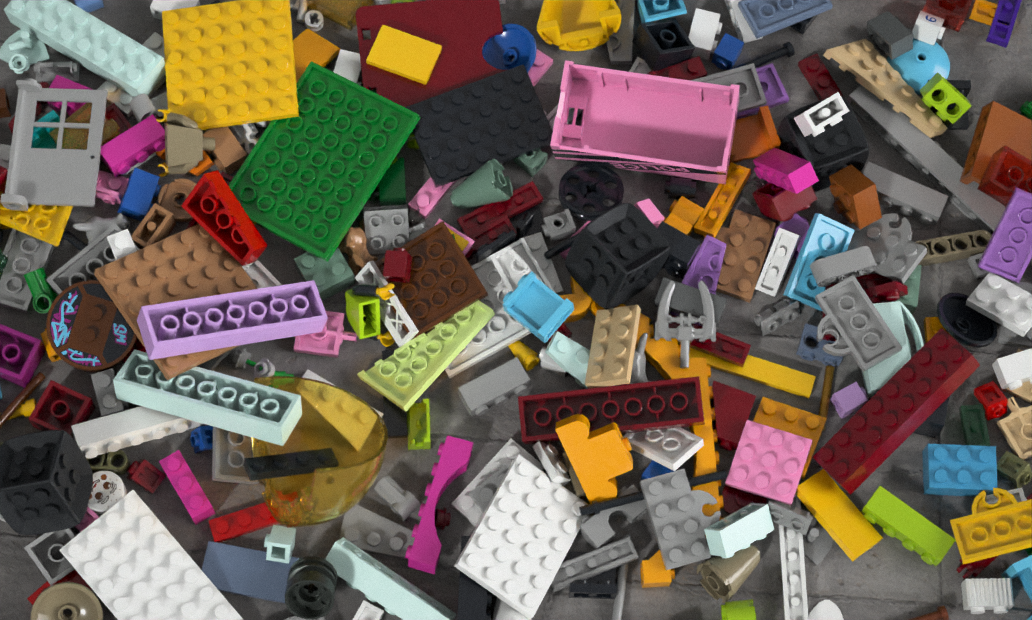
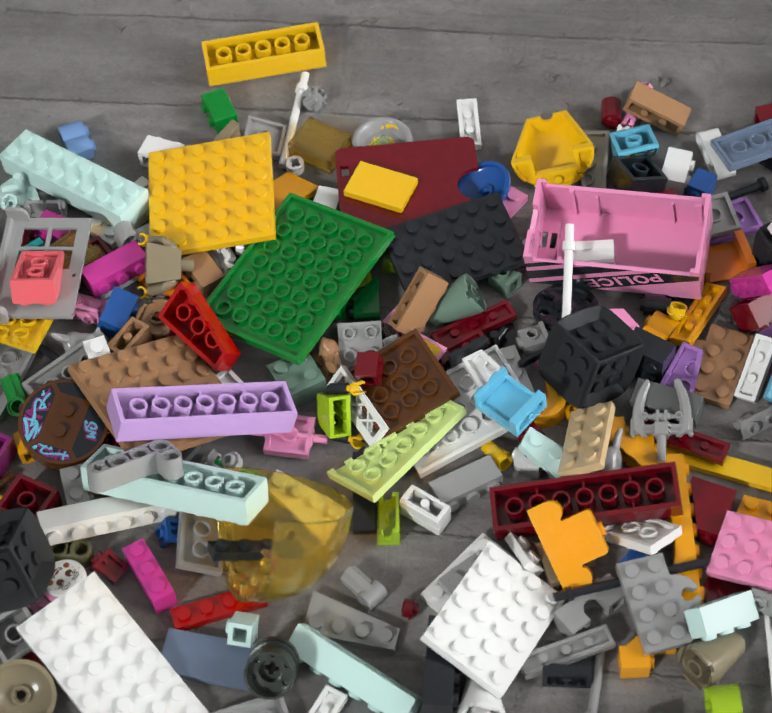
camera: 10 degrees right, 15 degrees down
(55, 161) = (37, 277): none -> coral slope
(168, 382) = (135, 464): none -> light grey beam
(445, 190) = (418, 301): none -> medium nougat brick
(453, 462) = (422, 554): dark pink arch -> none
(455, 416) = (425, 509): none -> white brick
(596, 138) = (568, 247): none -> white bar
(619, 137) = (595, 251): none -> white brick
(702, 197) = (677, 310): none -> yellow plate

